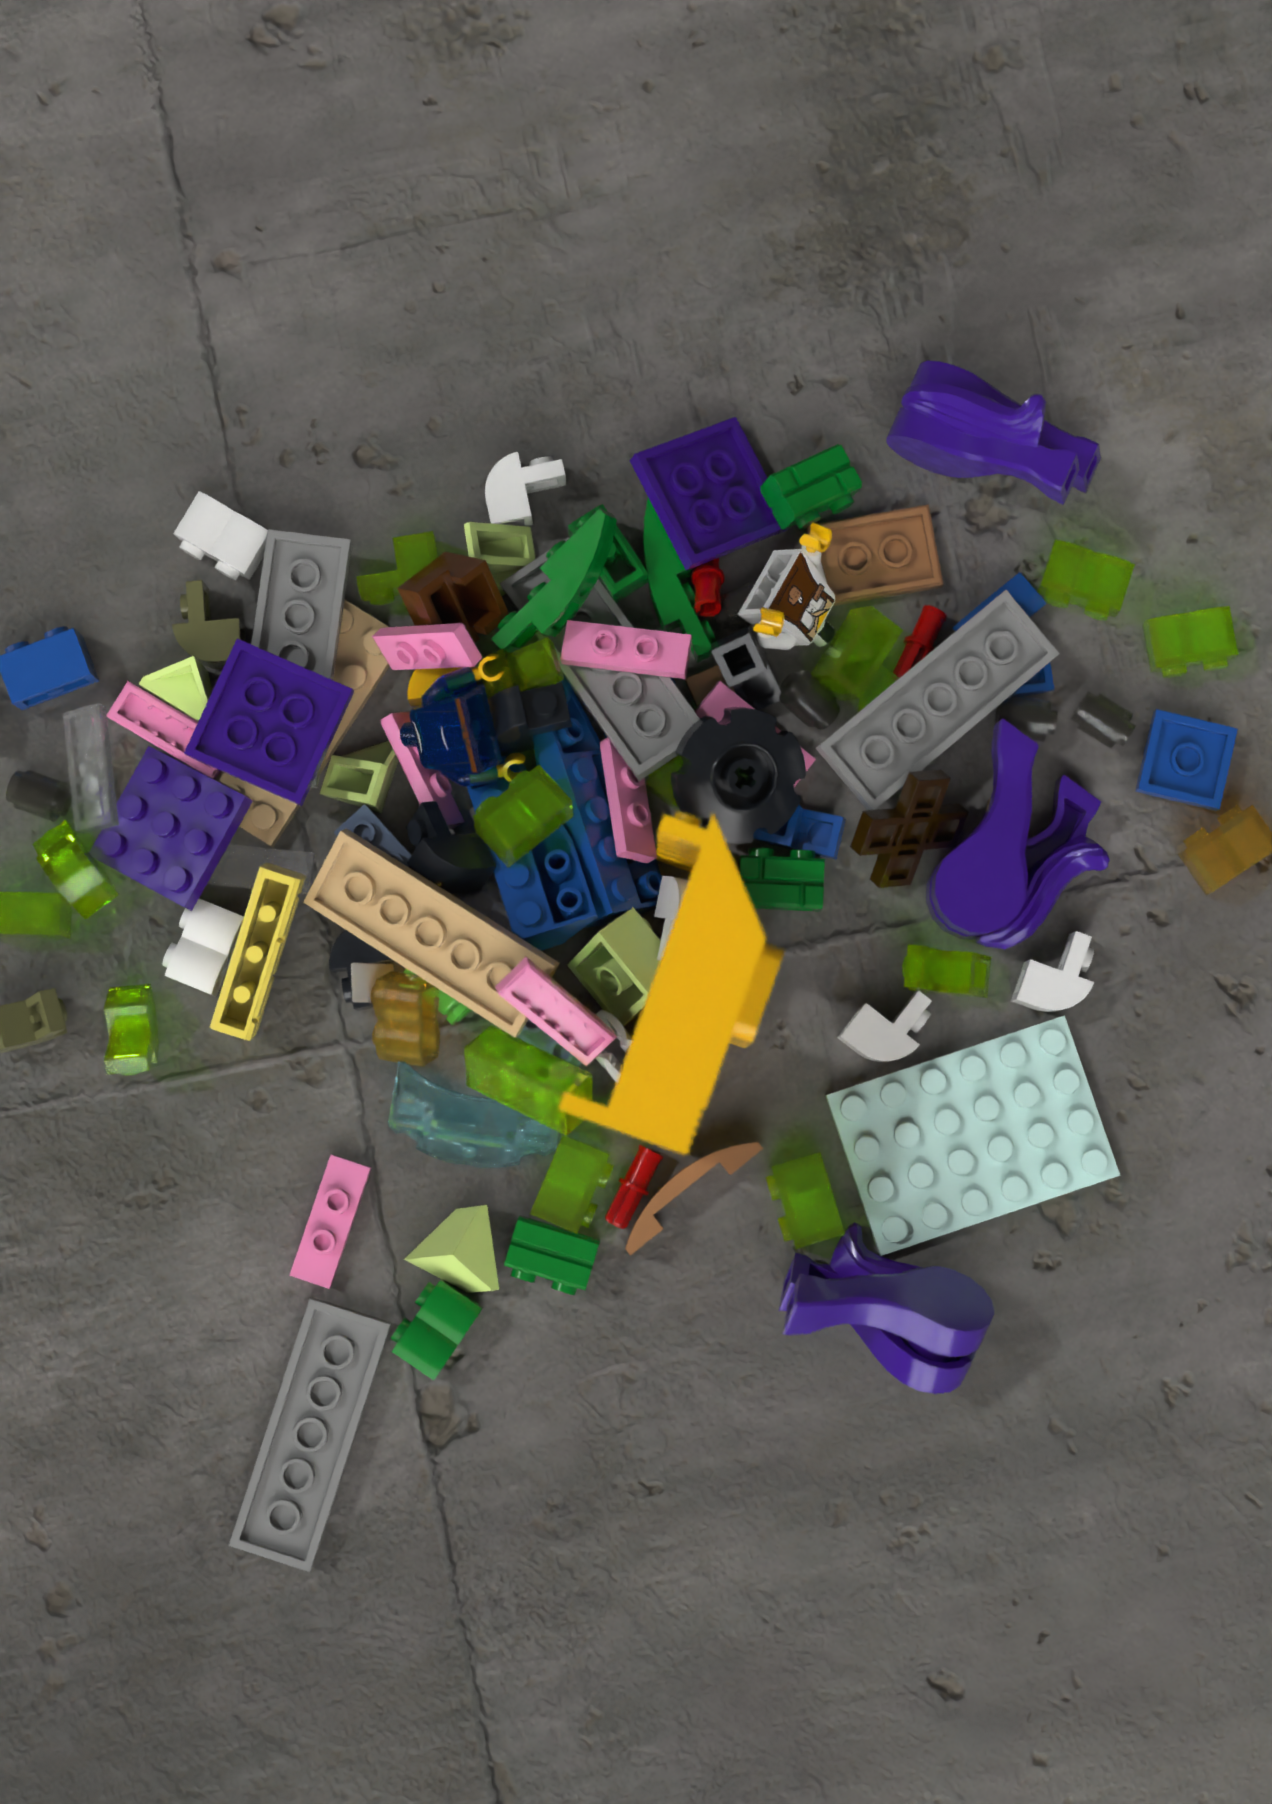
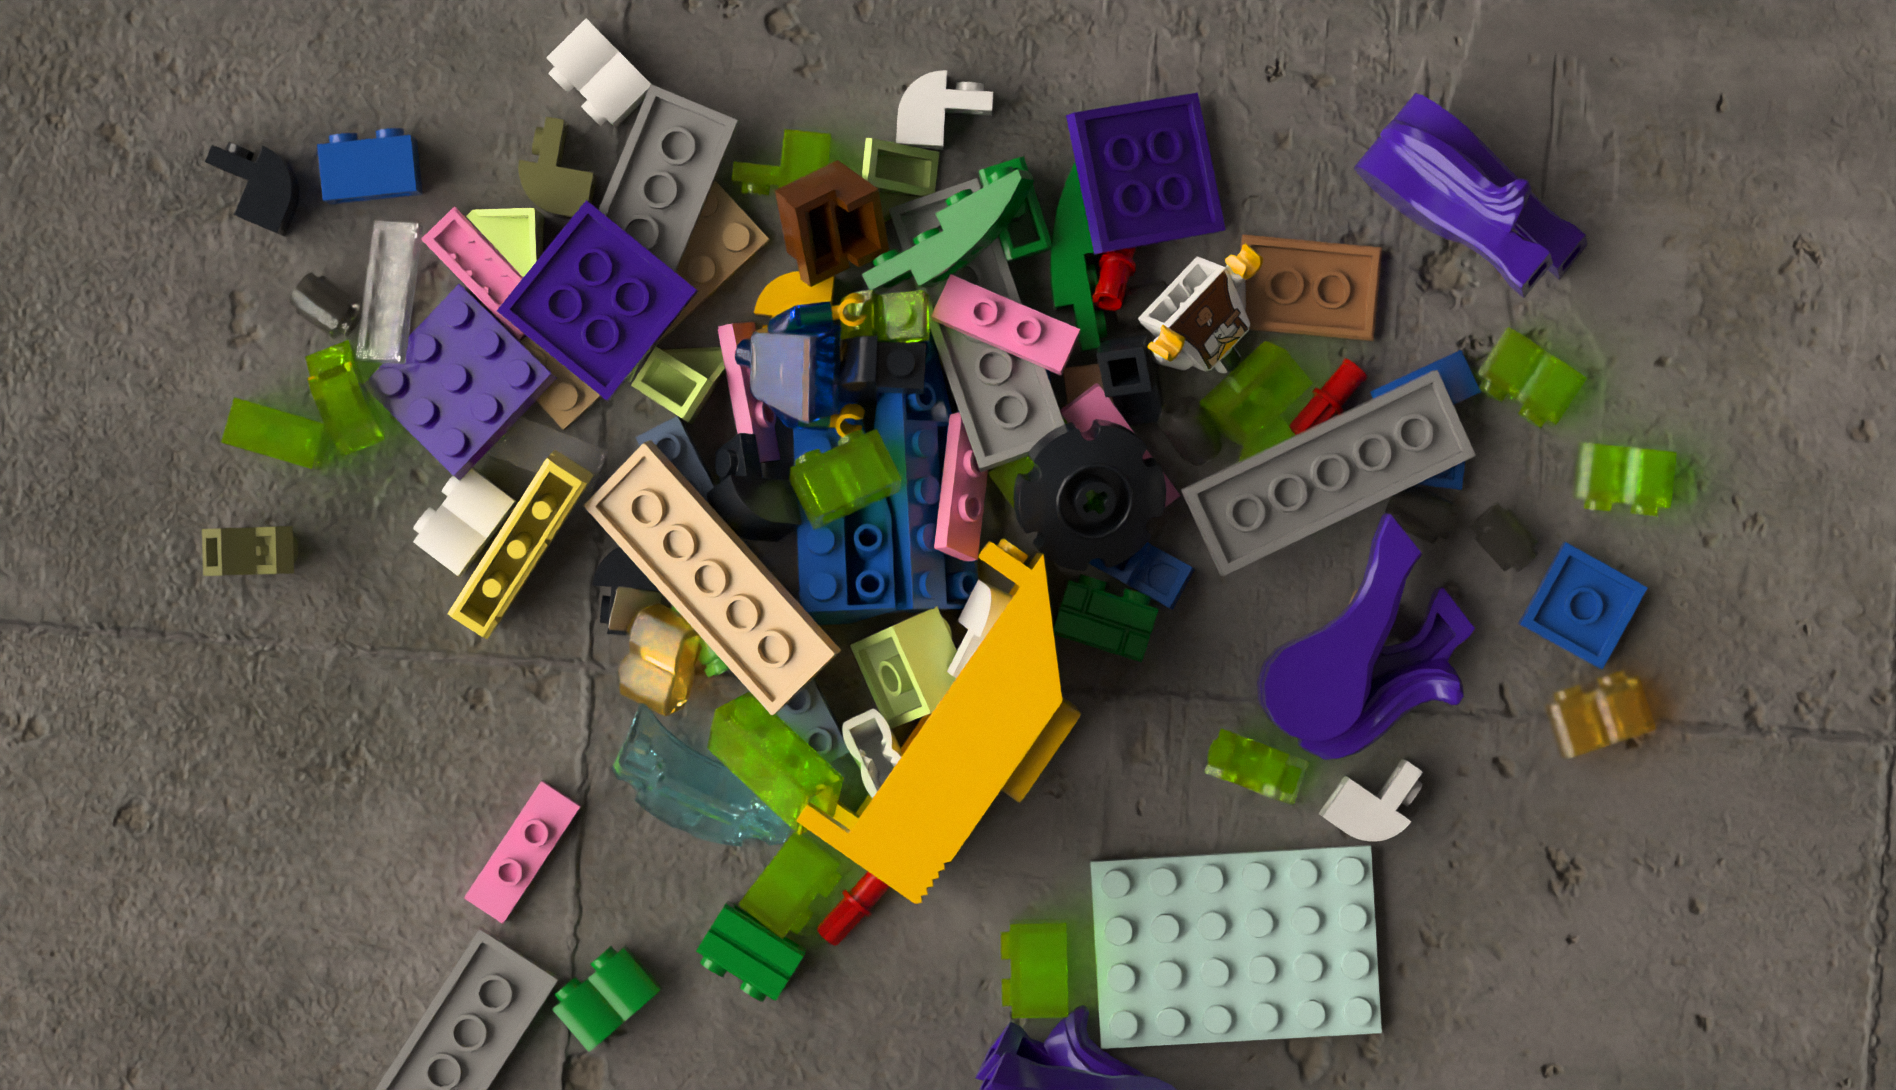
camera: 15 degrees right, 5 degrees up
(131, 1029) = (362, 590): clear neon green brick -> none
(427, 646) = (790, 265): bright pink plate -> none
(460, 1251) = (653, 921): yellowish green slope -> none
(555, 1011) = (823, 702): bright pink plate -> none
(648, 1226) = (860, 948): medium nougat slope -> none
(812, 487) = (1258, 196): green brick -> none
(883, 1040) = (1172, 822): white brick -> none
(906, 831) = (1251, 606): dark brown plate -> none

